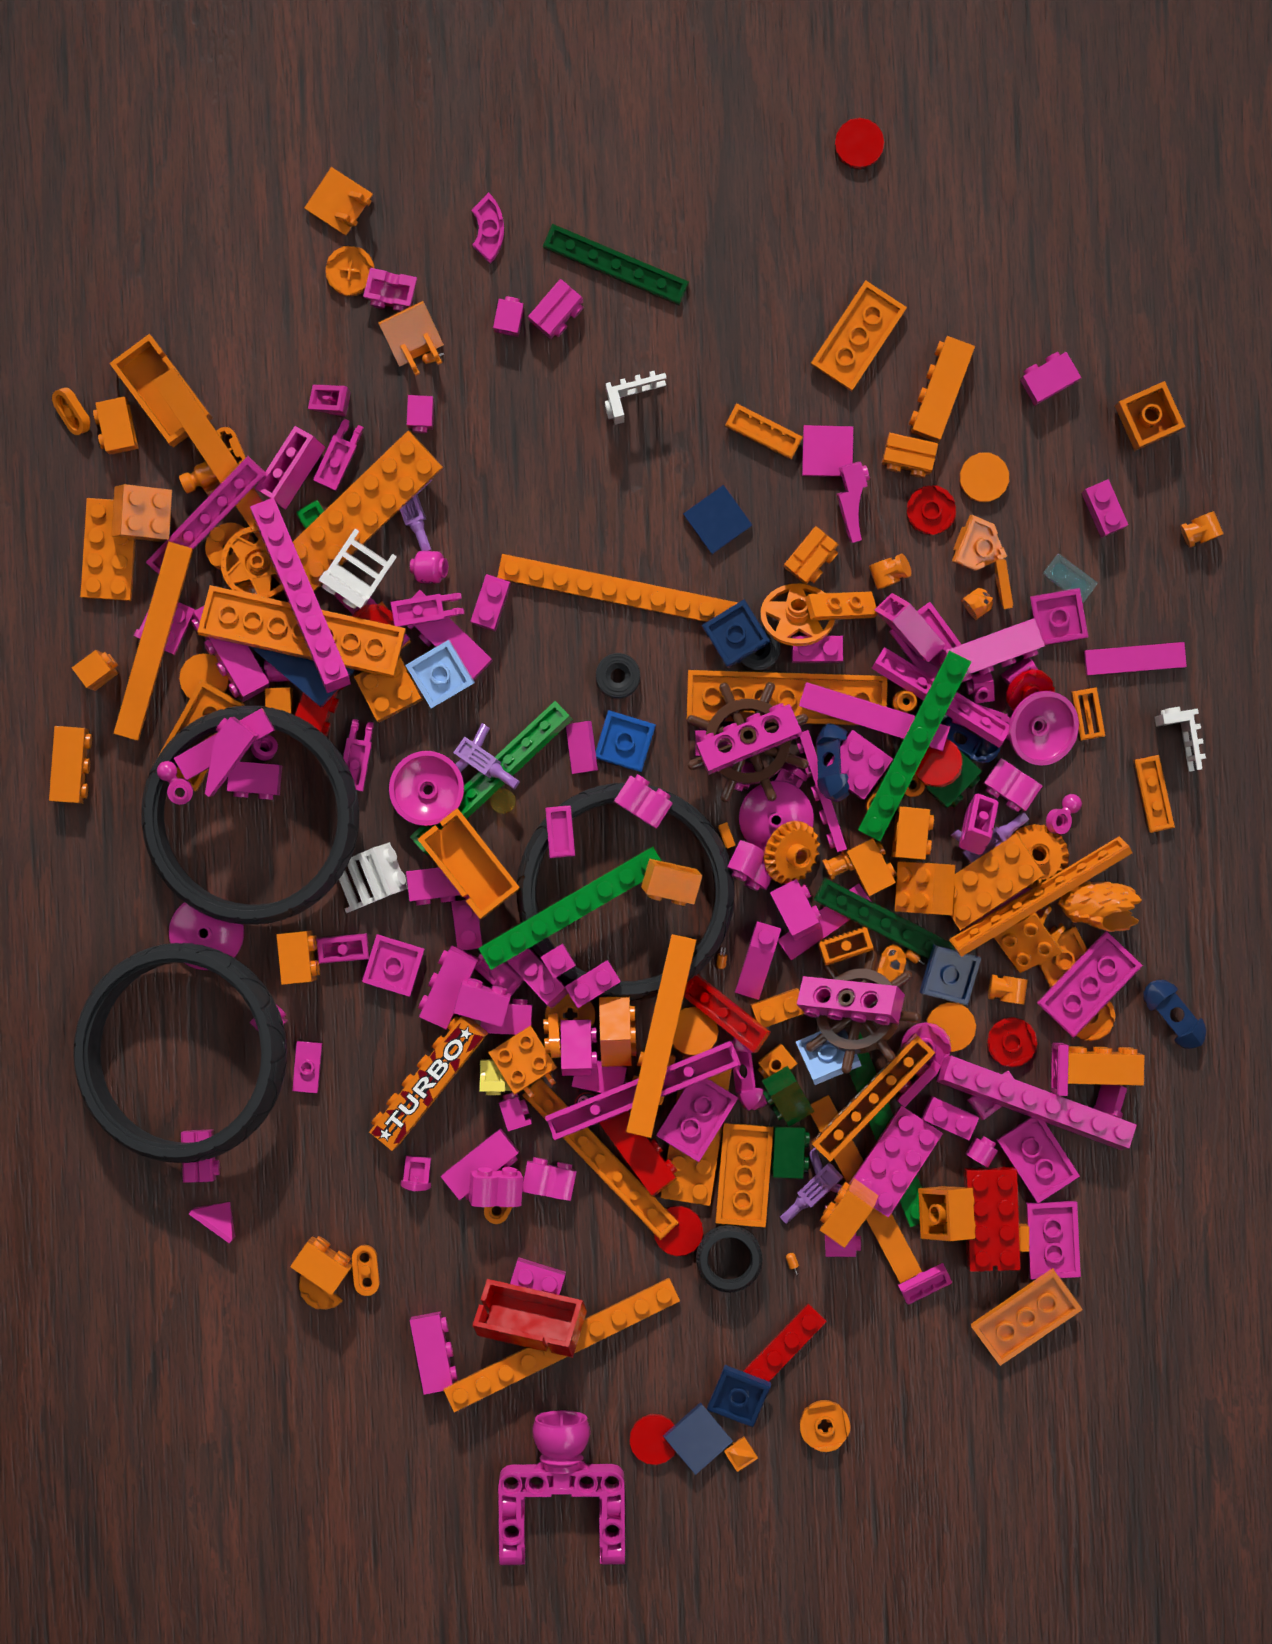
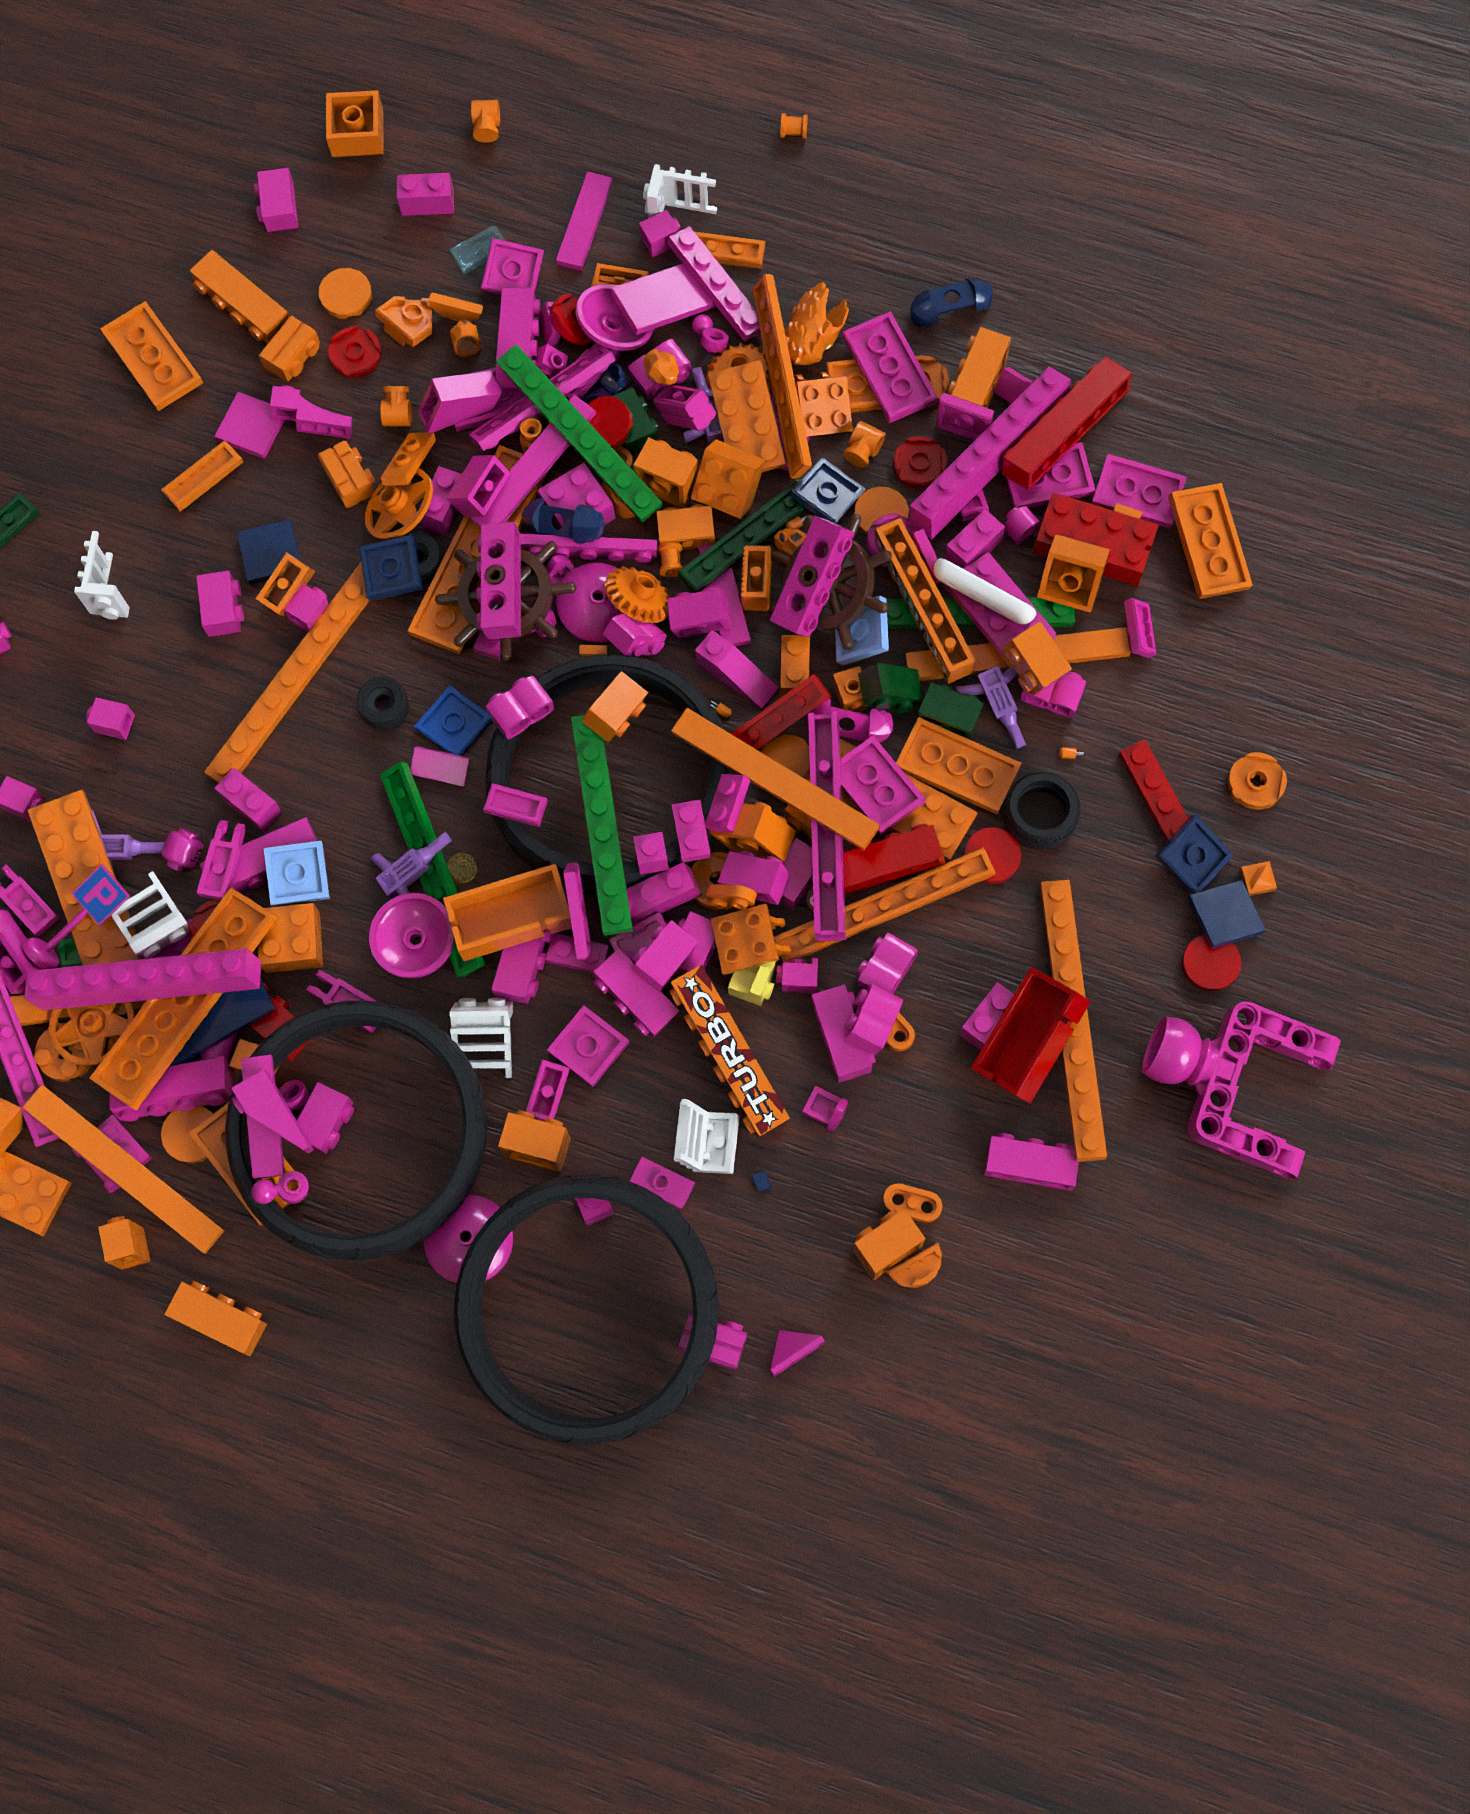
camera: 65 degrees left, 15 degrees down
(339, 1144) = (761, 1181): none -> dark blue piece
(351, 1091) = (706, 1139): none -> white plate
(357, 524) = (99, 897): none -> dark pink piece
(489, 919) = (577, 910): none -> dark pink tile
(516, 456) = (110, 718): none -> dark pink brick
(626, 1005) = (727, 803): none -> dark pink plate
(653, 500) = (219, 603): none -> dark pink brick
(677, 576) = (306, 607): none -> dark pink brick
(687, 551) = (284, 583): none -> orange brick
(834, 679) = (478, 485): none -> dark pink brick
(897, 1145) = (983, 592): none -> white piece
(1004, 791) = (661, 367): none -> orange rock
(1086, 766) = (661, 299): none -> tile
(1090, 1157) = (1066, 423): none -> red brick
(1113, 801) = (715, 282): none -> plate
(1146, 732) = (656, 230): none -> dark pink brick

